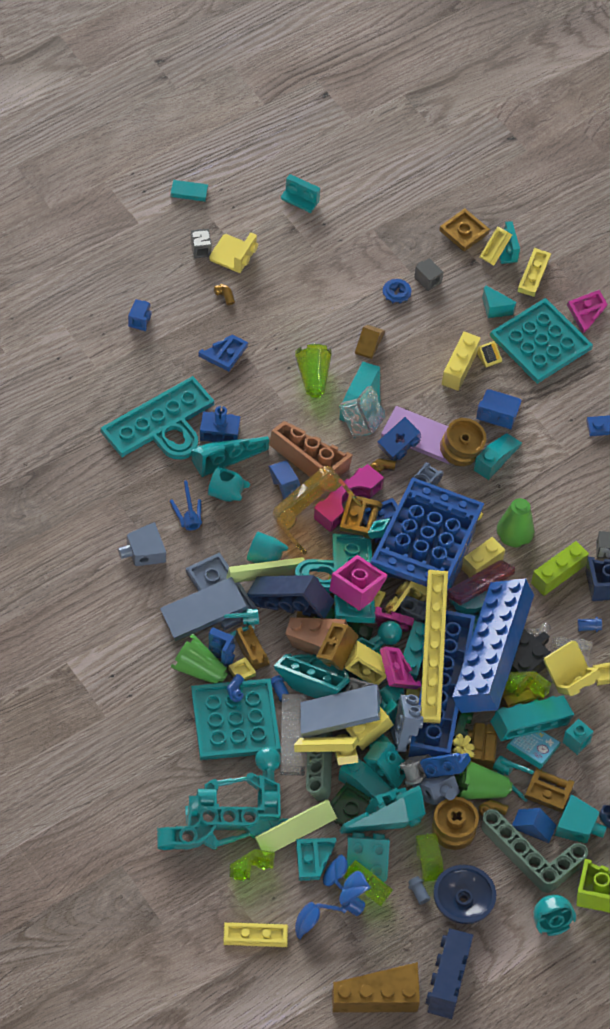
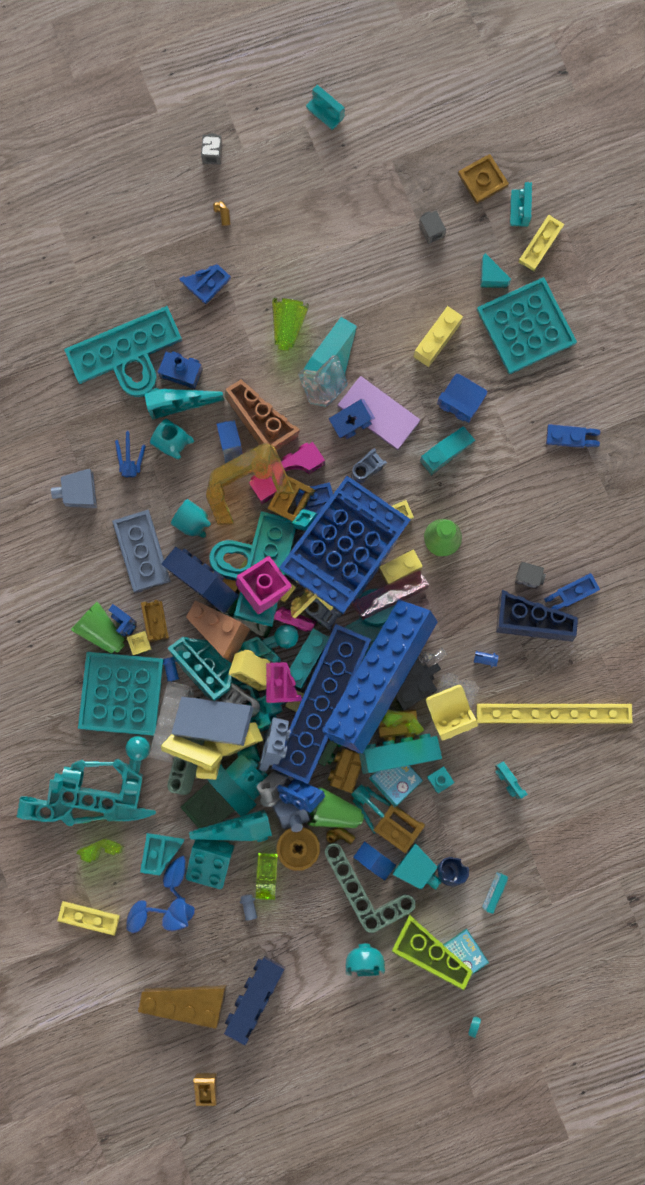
camera: 20 degrees right, 25 degrees up
(139, 315) = (131, 223): blue brick -> none
(189, 190) = (216, 81): teal tile -> none
(203, 608) = (117, 571): sand blue tile -> none
(233, 252) = (242, 165): light yellow bracket -> none
(233, 688) = (124, 666): blue arm -> none
(248, 617) = (157, 590): teal plant -> none
(273, 568) = (184, 540): yellowish green tile -> none
(296, 827) = (148, 821): yellowish green tile -> none
(337, 645) = (225, 653): pearl gold hinge -> none
(369, 341) = (353, 293): pearl gold slope -> none
(379, 890) = (196, 891): clear neon green slope -> none
(381, 464) = (329, 439): pearl gold arm -> none
(384, 798) = (245, 812): teal wing -> none
(393, 285) = (393, 232): blue gear -> none
(434, 646) = (318, 671): light yellow tile -> none
(462, 442) = (420, 427): pearl gold wheel -> none
(462, 745) = (324, 775): light yellow plant -> none
(465, 883) = (286, 940): dark blue dish -> none
(489, 354) = (470, 332): slope -> none
(495, 246) = (508, 206): light yellow tile -> none
(559, 568) = (473, 592): lime brick -> none
(587, 309) = (583, 297): dark pink wing -> none

